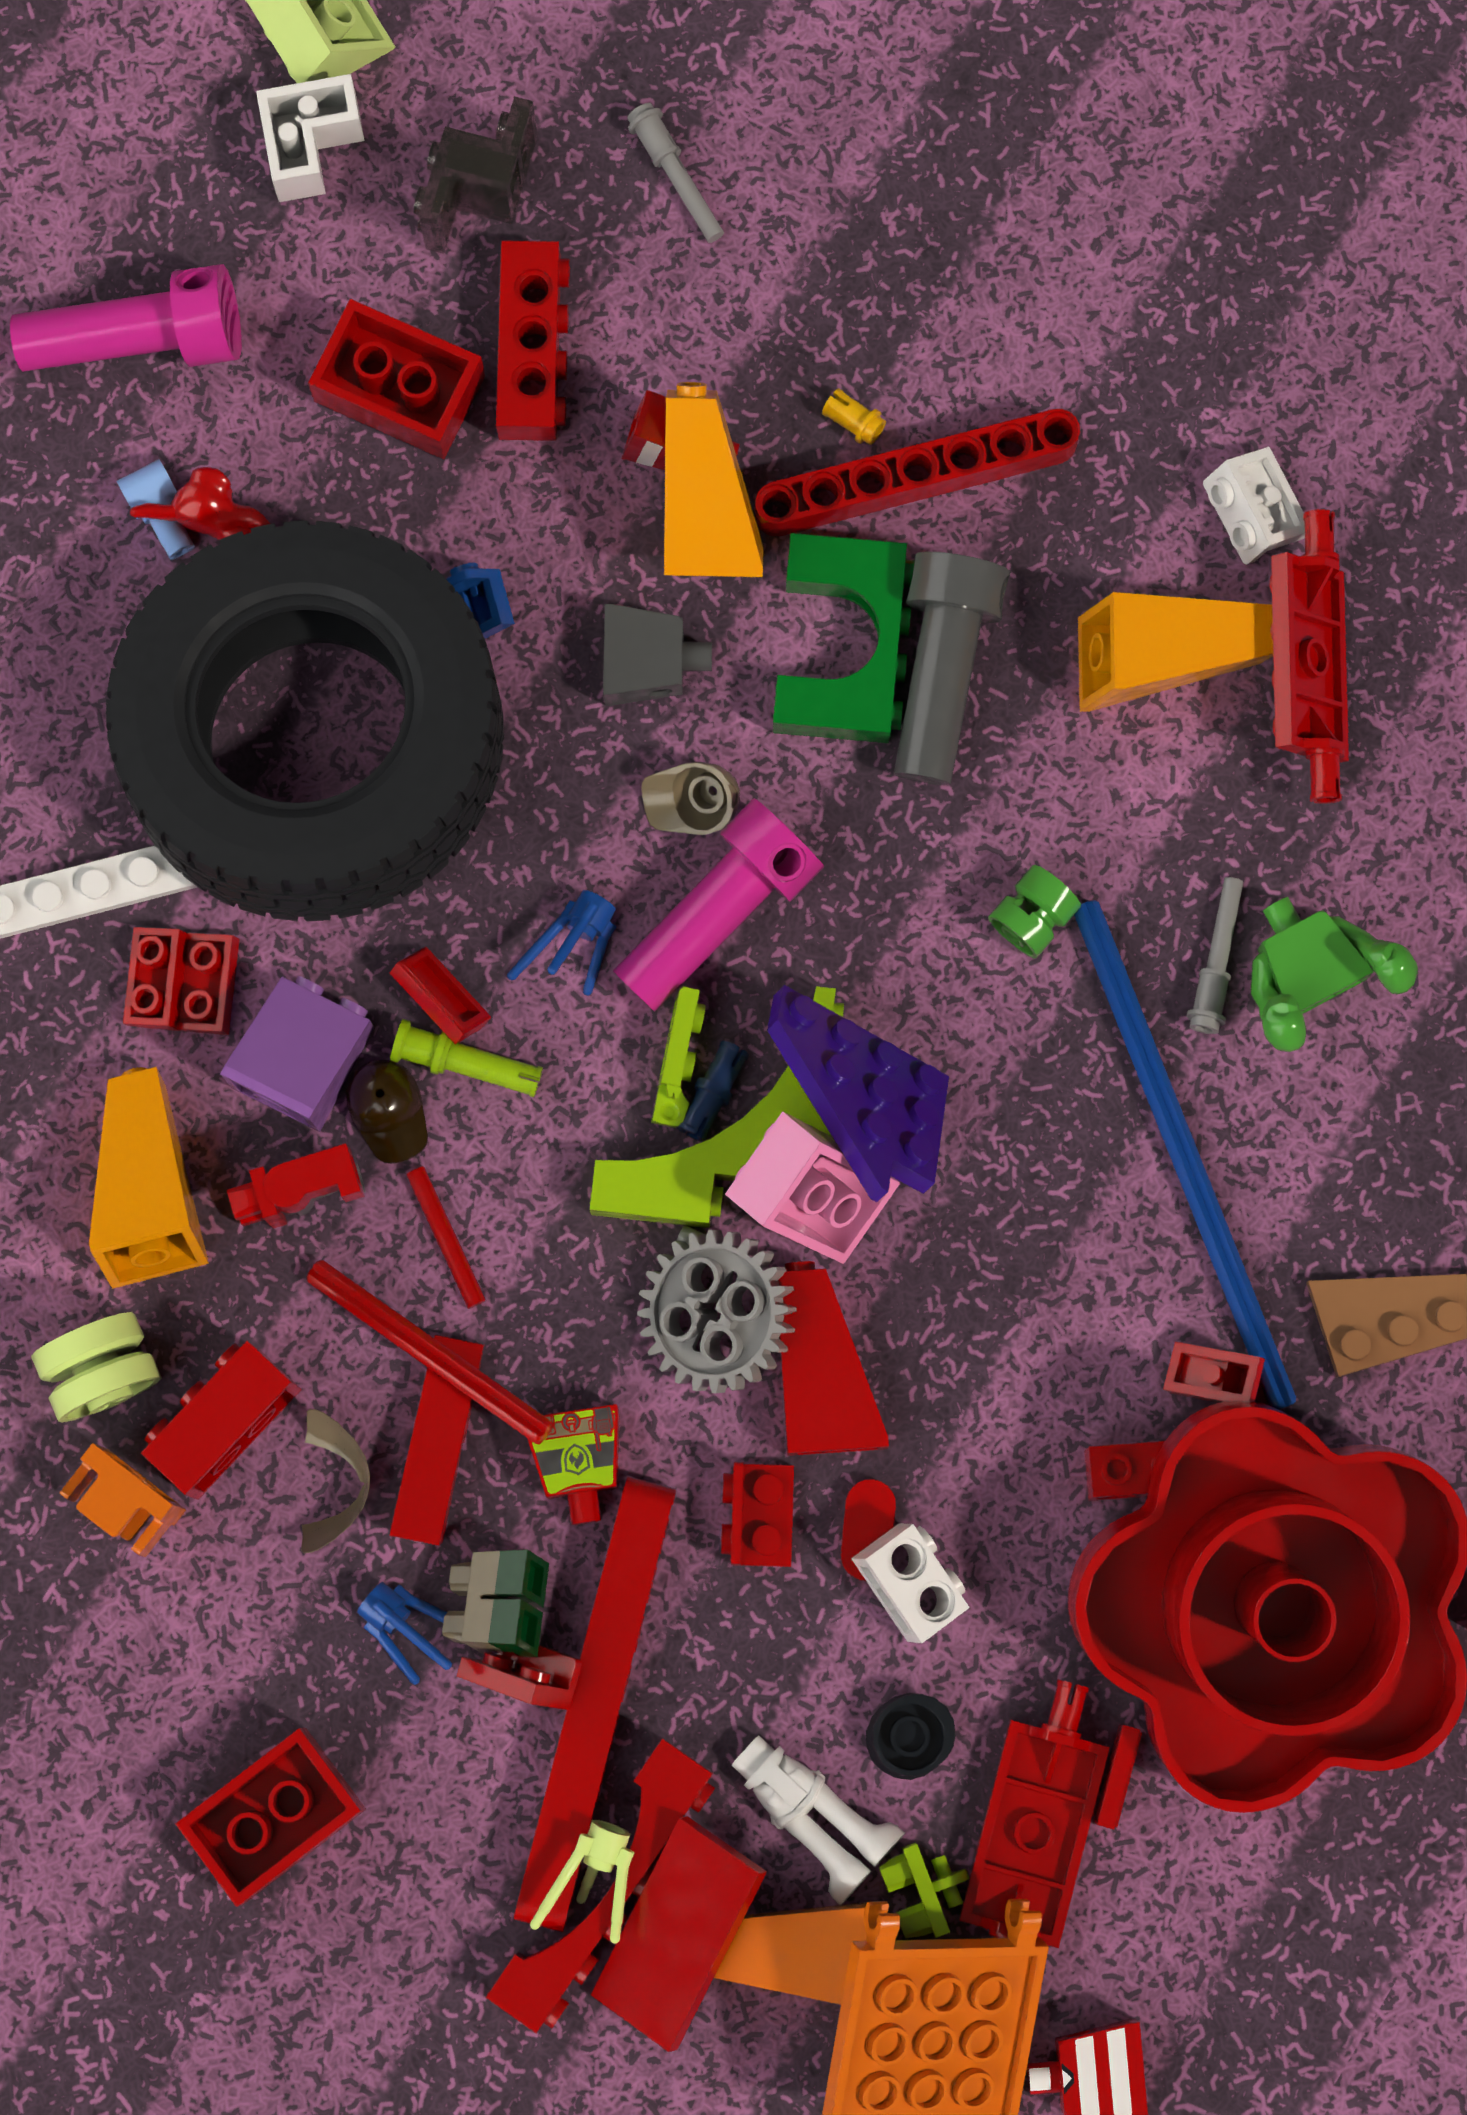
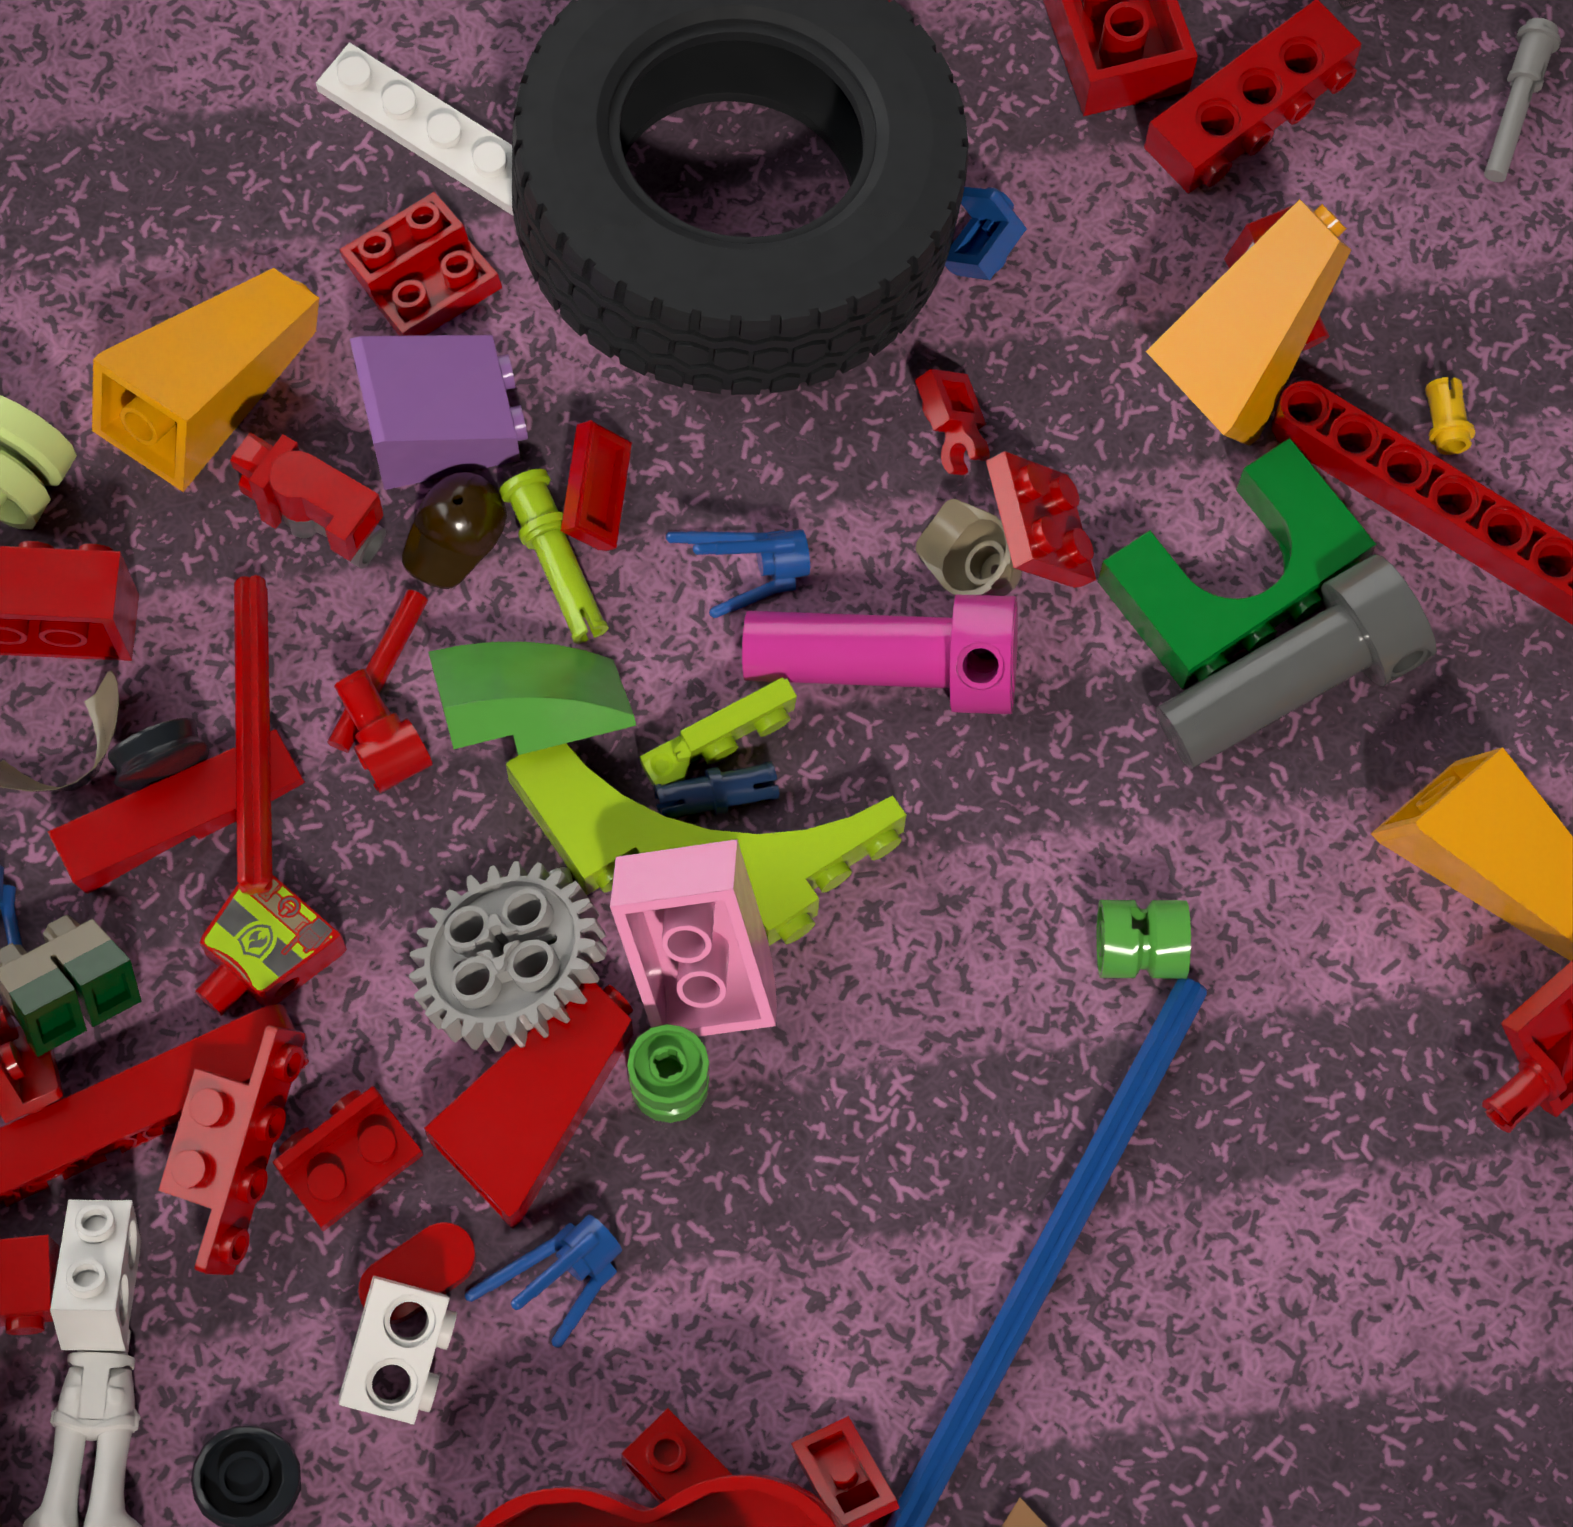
camera: 45 degrees right, 10 degrees down
(393, 1423) = (157, 753): none -> black piece
(505, 1272) = (386, 744): none -> red pin
(555, 1156) = (530, 692): none -> bright green slope
(584, 724) = (954, 409): none -> red plate
(647, 655) = (1064, 412): dark grey torso -> none
(694, 1583) = (227, 1143): none -> red bracket
(711, 735) = (1041, 520): none -> red plate
(712, 1728) = (96, 1275): none -> white brick
(868, 1092) = (827, 912): dark purple wing -> none
(876, 1273) = (668, 1073): none -> bright green wheel
(942, 1416) = (581, 1252): none -> blue plant
(1213, 980) = (1220, 1168): light grey pin -> none
(1315, 962) = (1330, 1243): bright green torso -> none

